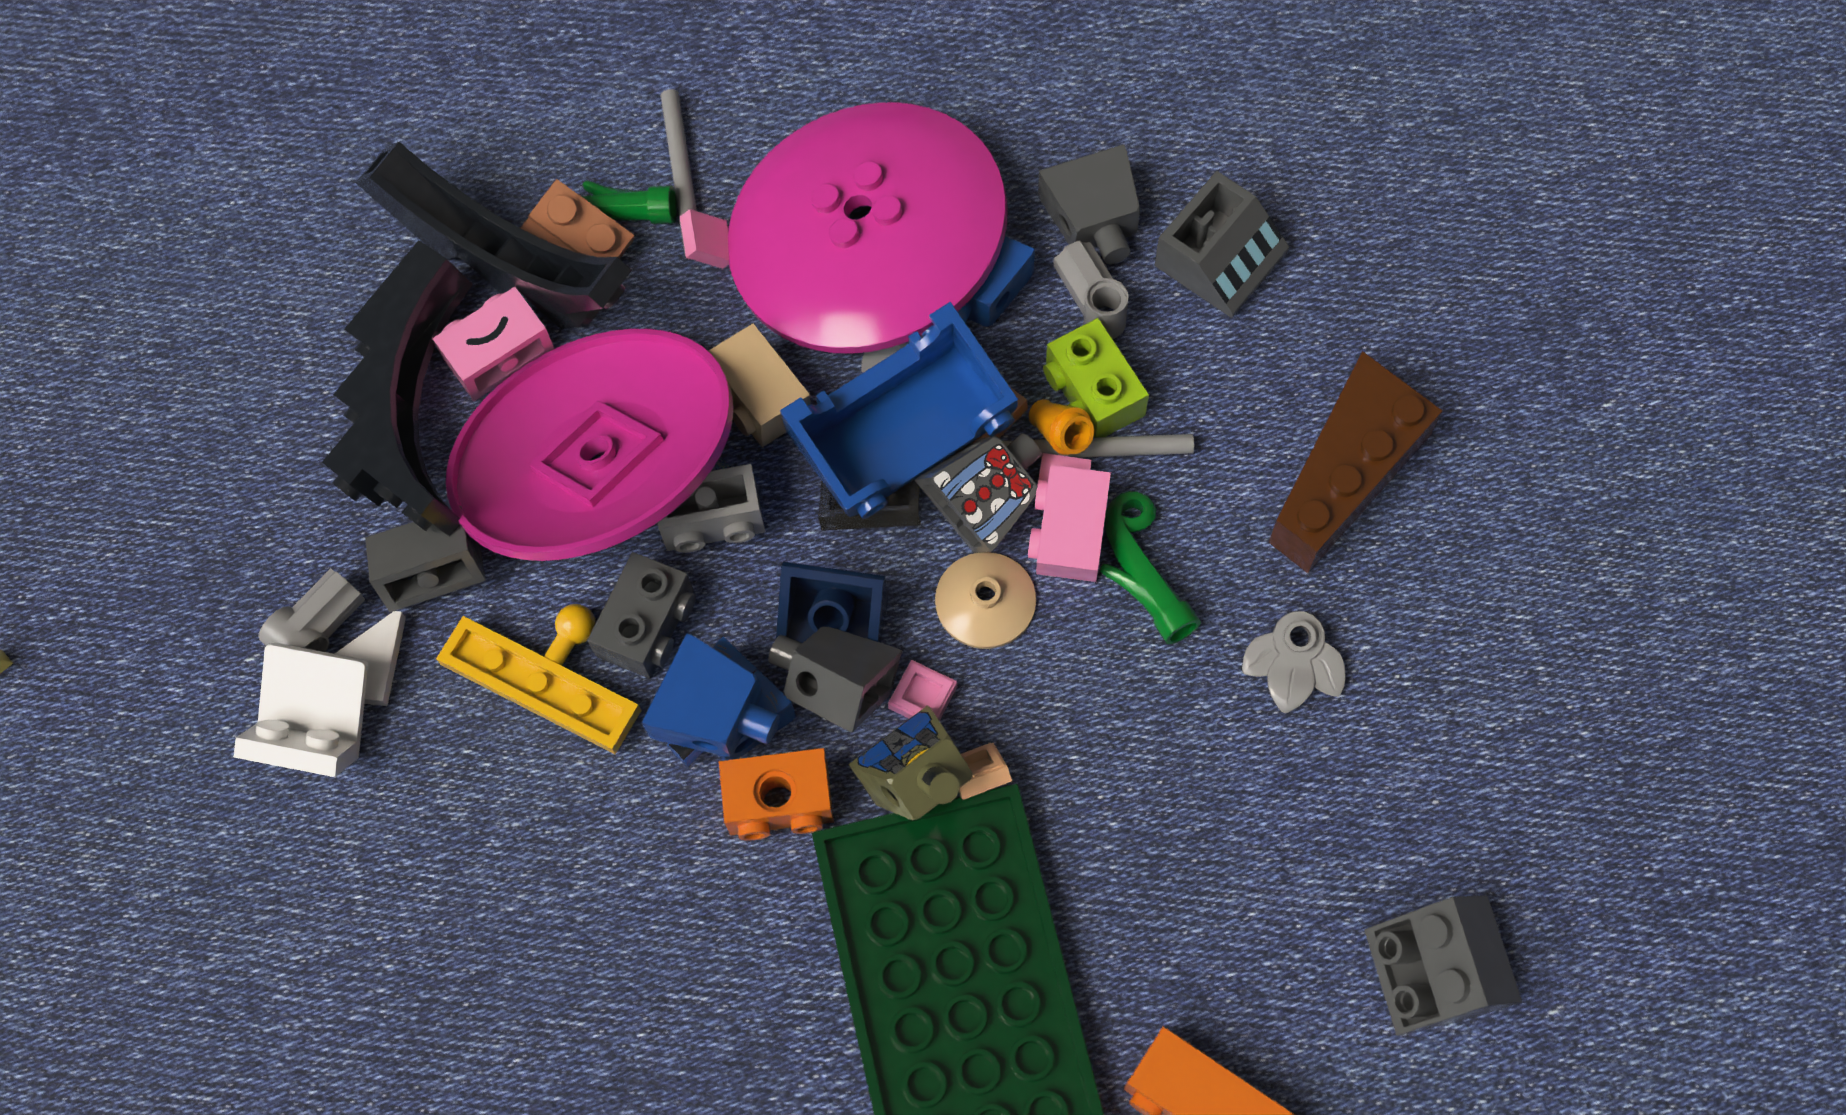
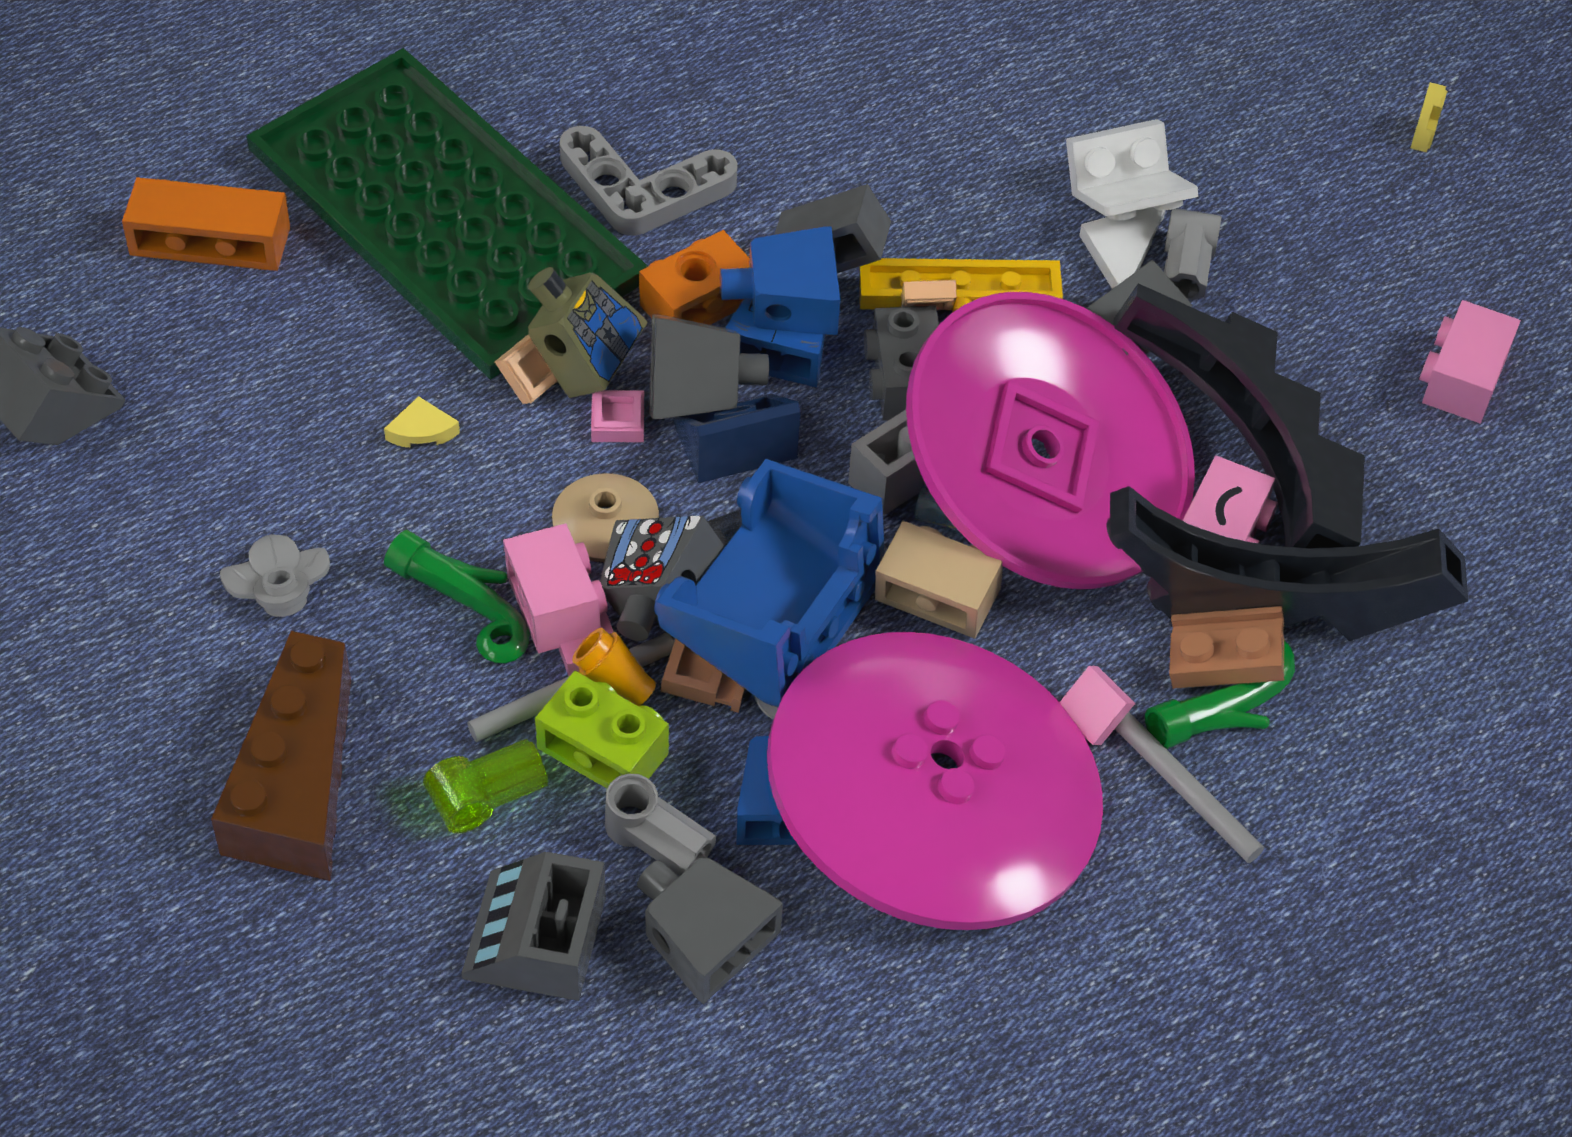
camera: 145 degrees right, 15 degrees down
(174, 394) = (1469, 361): none -> bright pink brick
(585, 654) = (929, 293): none -> light nougat tile
(628, 766) = (856, 223): none -> dark grey brick
(756, 946) = (647, 204): none -> light grey beam
(1103, 763) = (421, 424): none -> light yellow tile
(1220, 382) = (470, 790): none -> clear neon green piece

